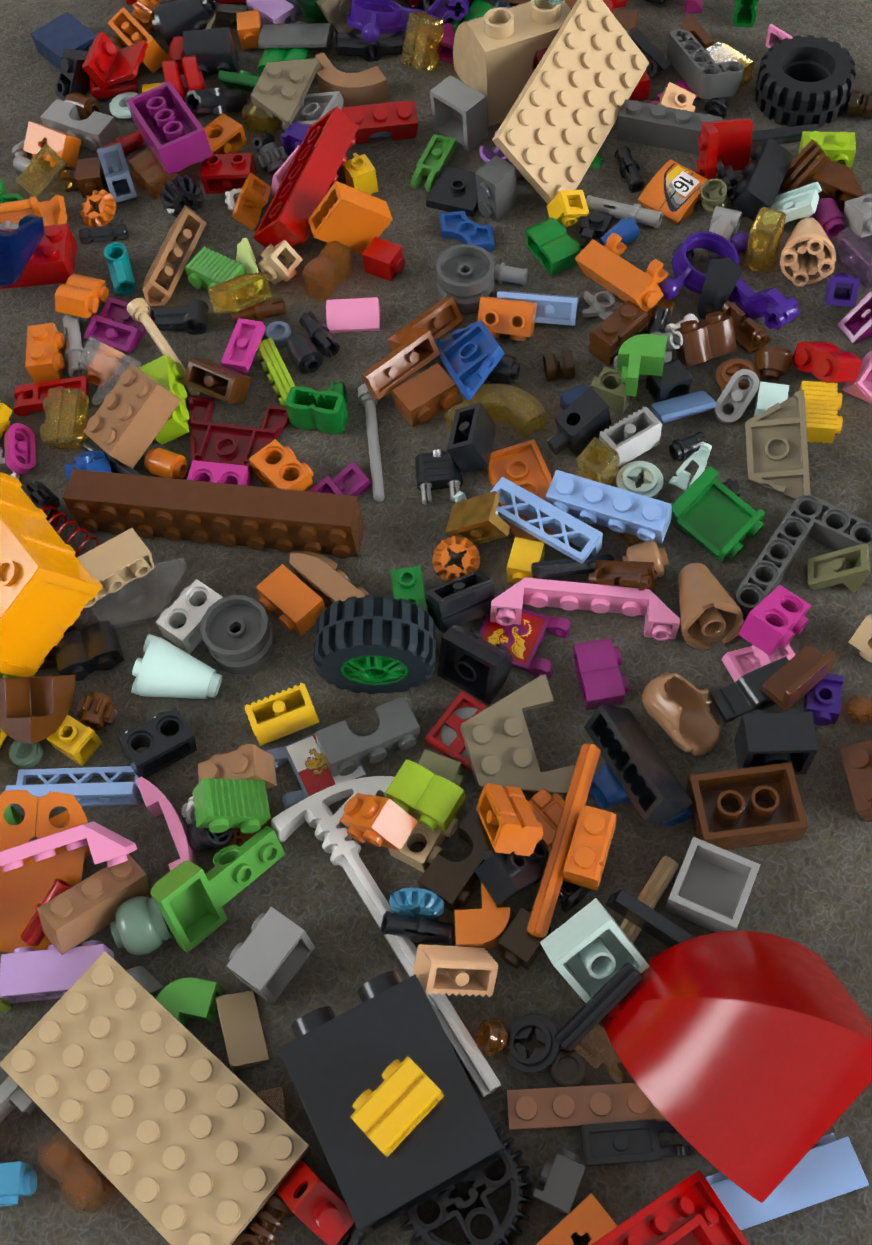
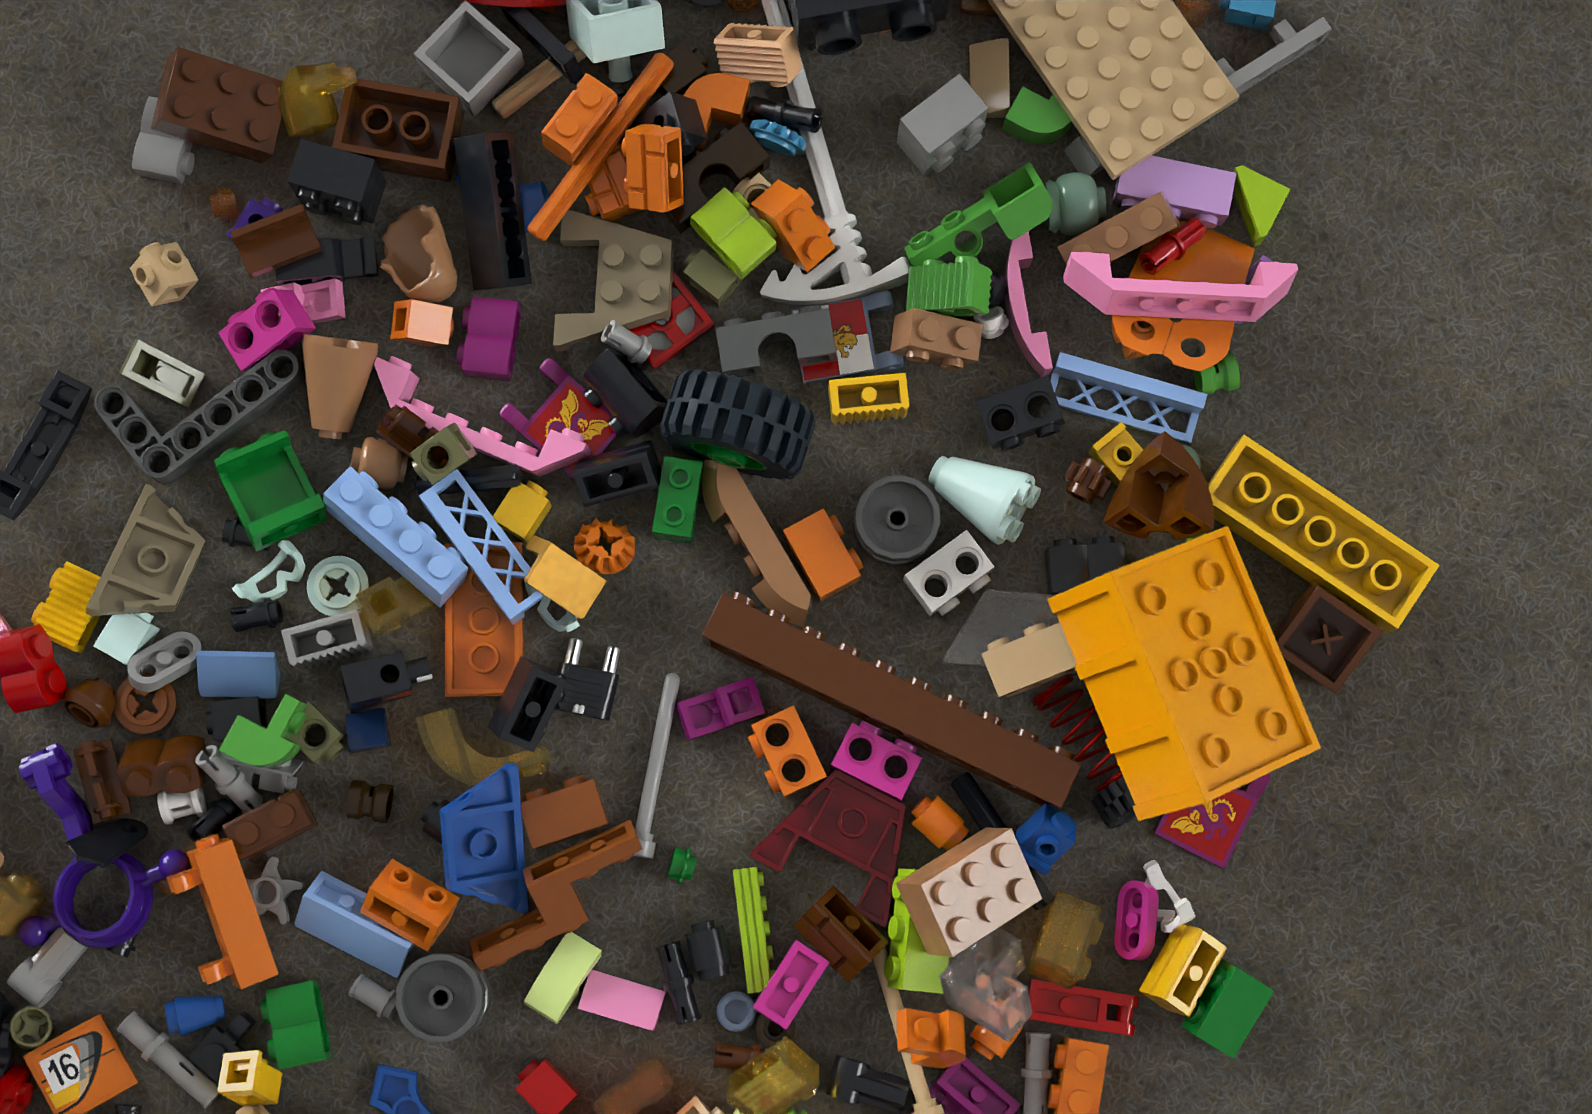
camera: 175 degrees left, 20 degrees up
(142, 337) = (931, 1037): none -> orange brick
(316, 410) = (726, 836): green brick -> none
(394, 313) = (562, 977): none -> yellowish green slope
(486, 691) = (635, 347): none -> light grey pin
(594, 561) = (453, 442): none -> olive brick
(655, 659) = (422, 323): none -> brick
(828, 800) = (308, 97): none -> clear yellow brick

